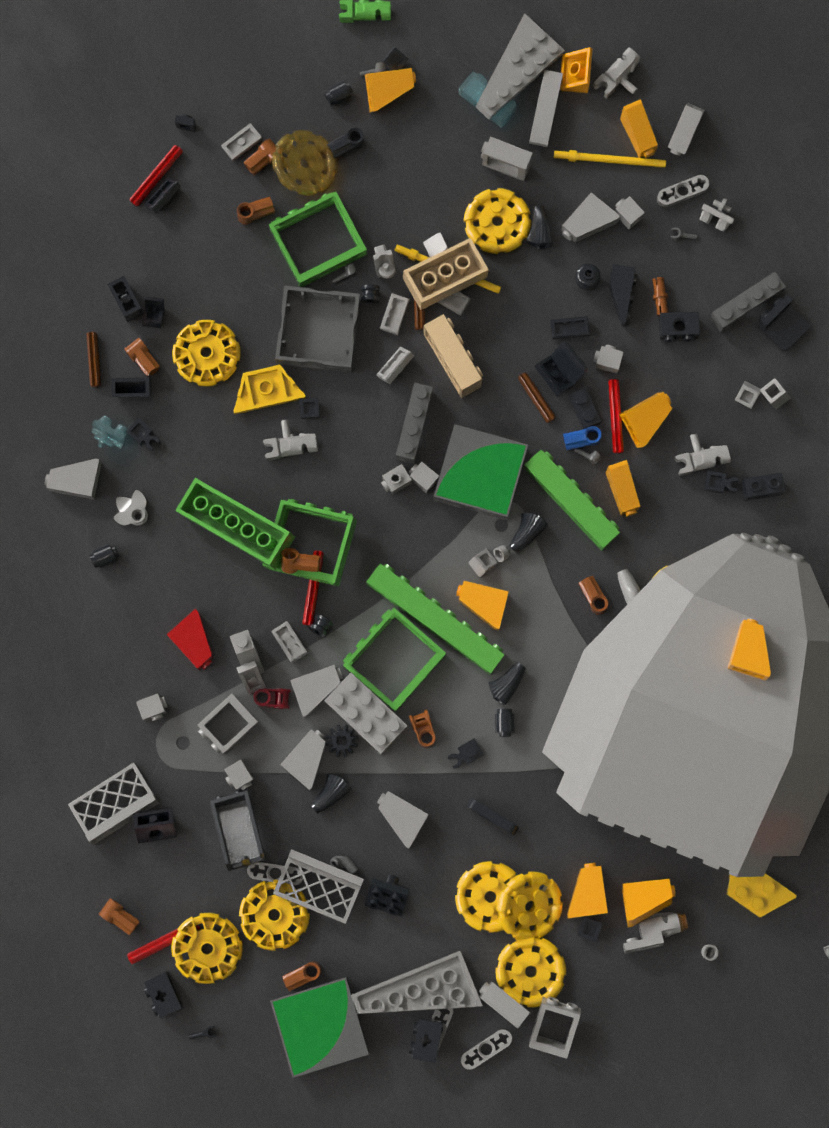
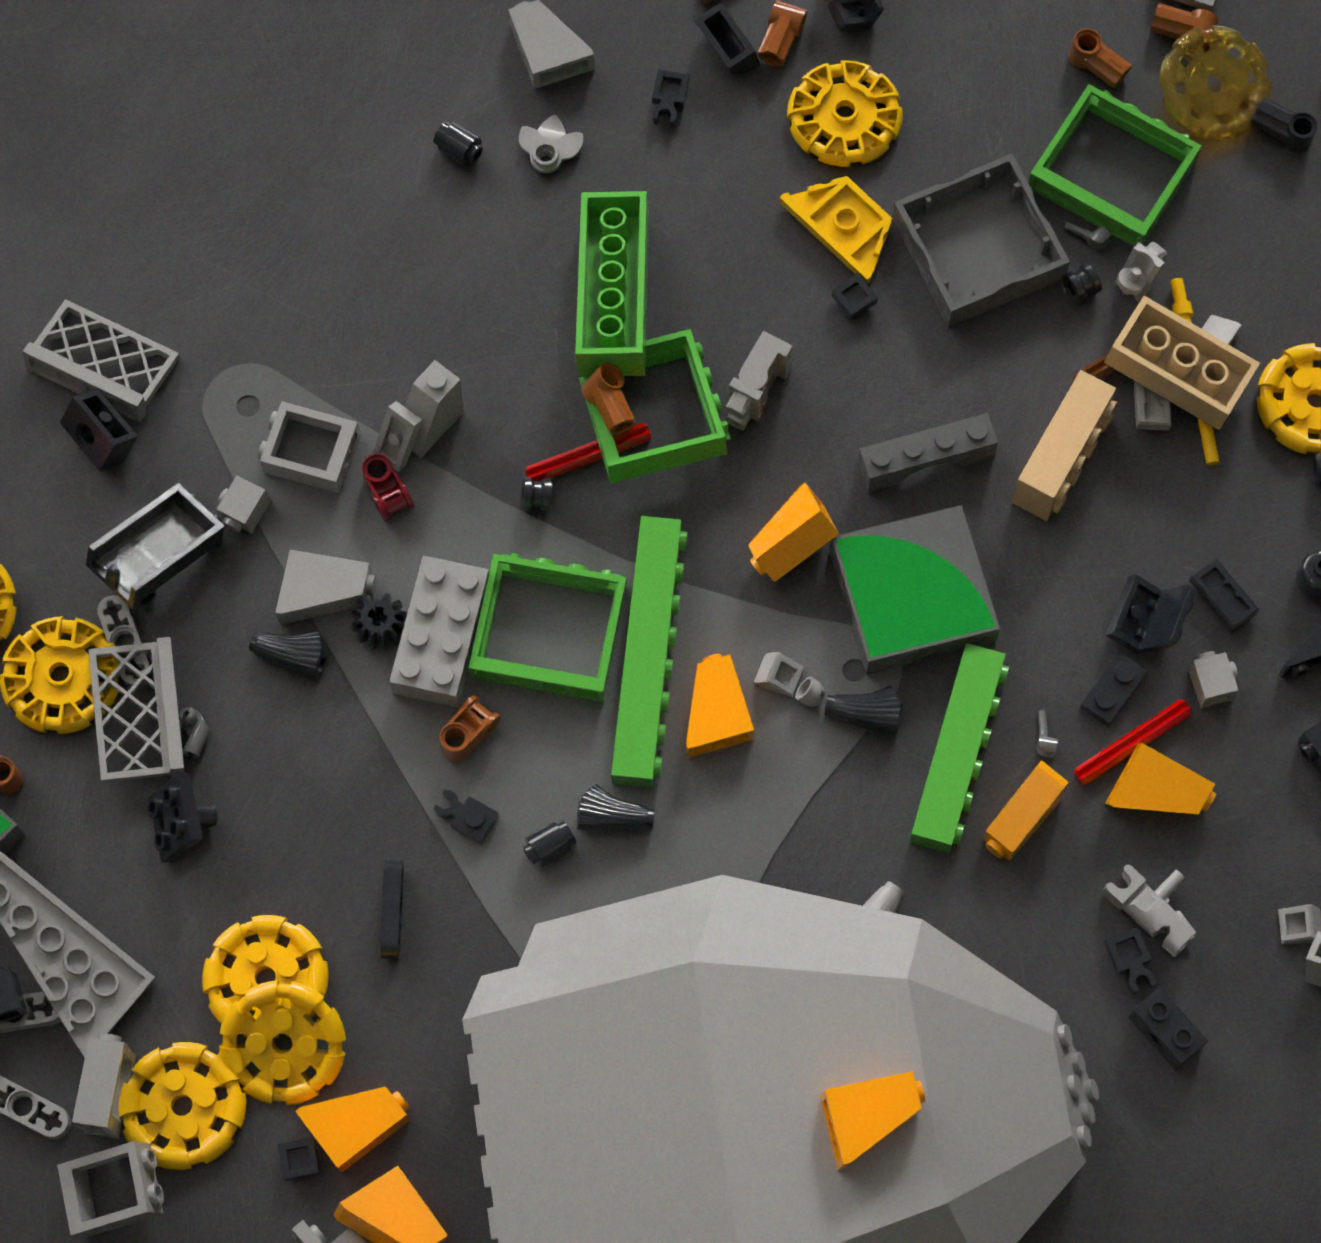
camera: 60 degrees right, 10 degrees down
(106, 434) = (635, 49): clear light blue hips -> none
(152, 707) = (273, 330): light grey brick -> none
(192, 640) = (407, 330): red slope -> none
(289, 642) = (485, 465): light grey plate -> none
(290, 444) = (783, 300): light grey piece -> none
(315, 688) = (435, 533): light grey slope -> none
(328, 483) = (749, 393): none -> light grey hips
(394, 314) = (1075, 334): light grey plate -> none
(395, 365) = (997, 377): light grey plate -> none
(396, 479) = (825, 475): light grey brick -> none
(402, 817) = (312, 776): light grey slope -> none
(419, 513) = (792, 534): none -> light orange slope
(423, 477) = (854, 509): light grey brick -> none
(536, 397) = (1083, 608): reddish brown axle -> none
(579, 438) = (1062, 708): blue piece -> none
(593, 593) = (831, 864): dark orange piece -> none

